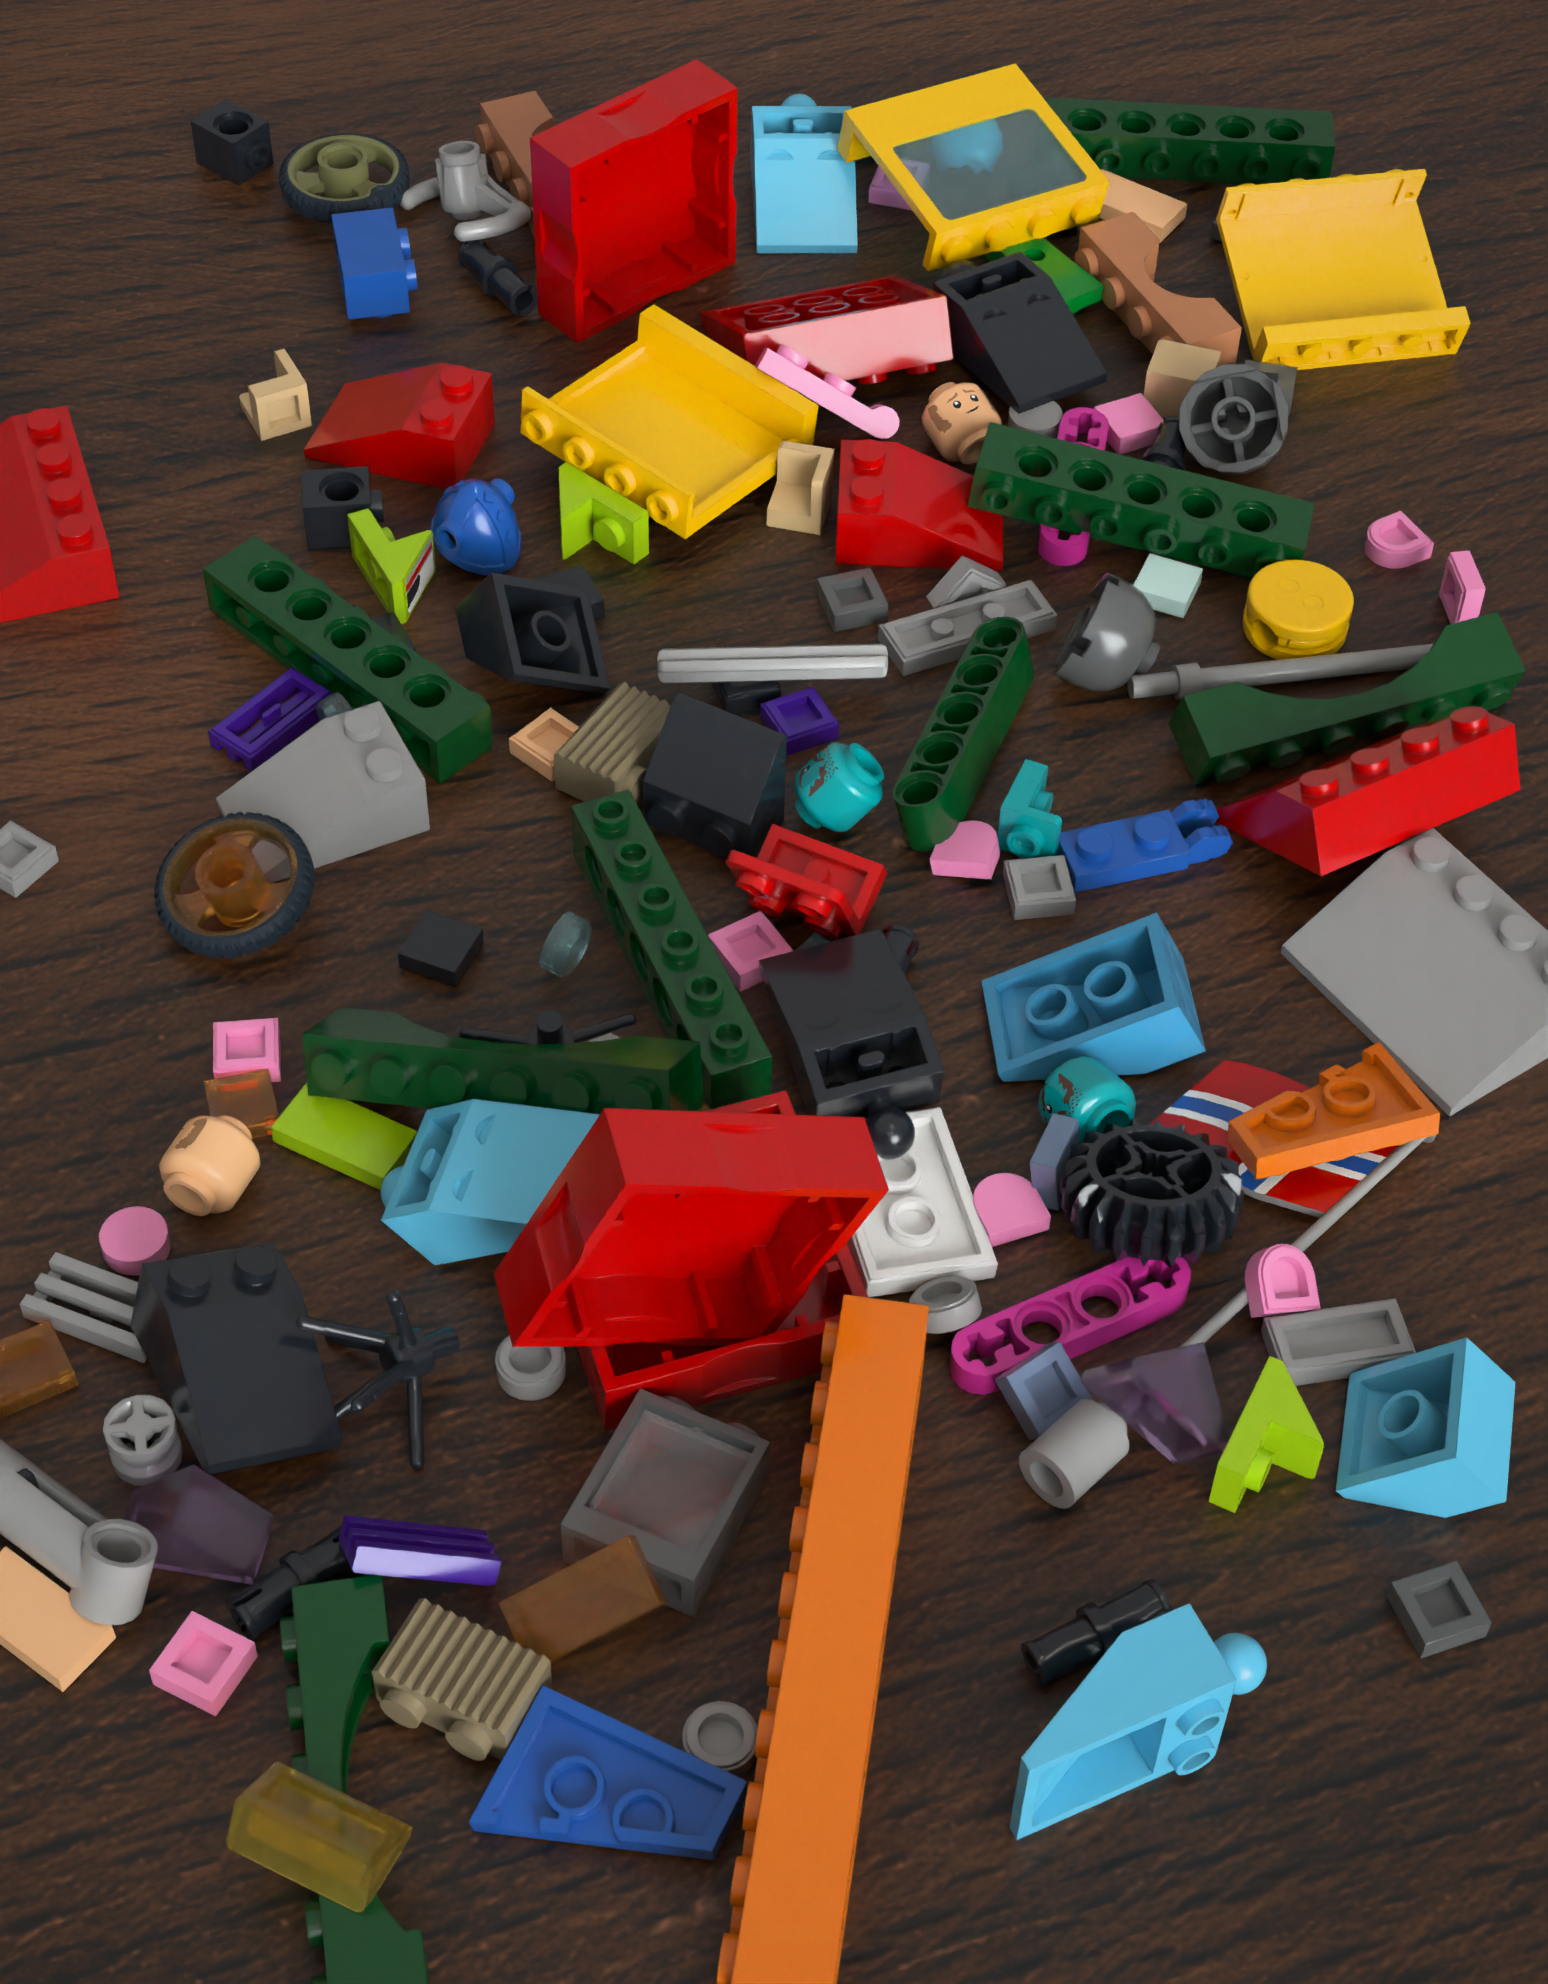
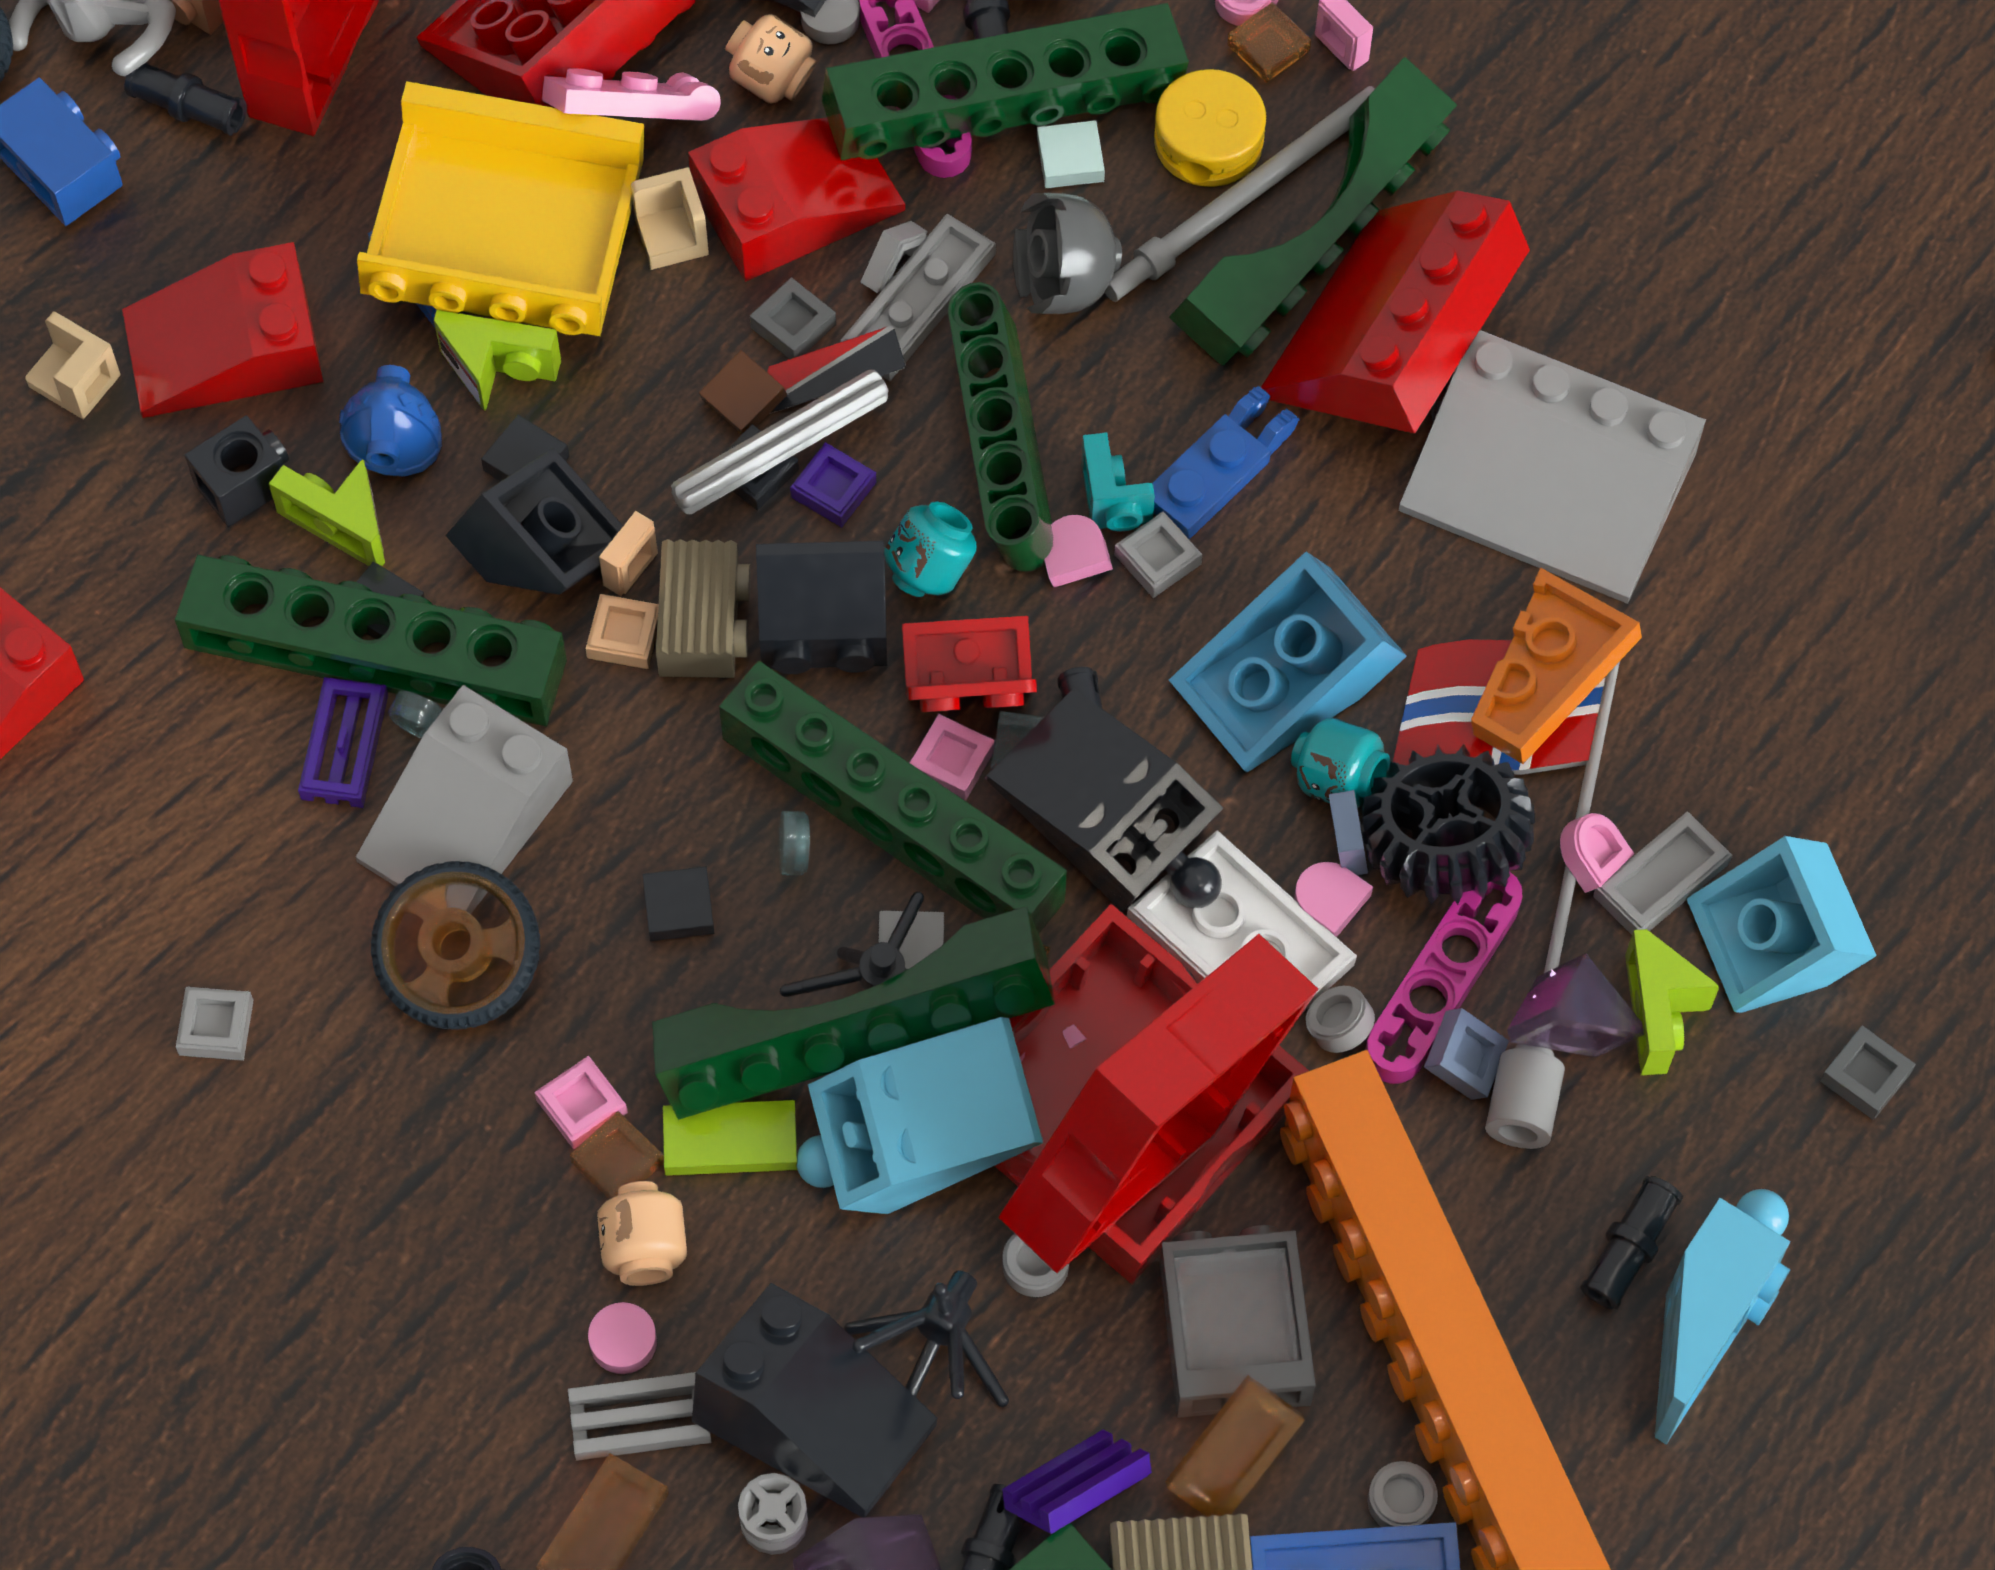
camera: 30 degrees left, 15 degrees up
(588, 685) = (628, 554): none -> light nougat tile
(772, 623) = (743, 393): none -> reddish brown tile
(901, 642) = (832, 366): none -> sticker
(1393, 579) = (1269, 42): none -> clear orange tile

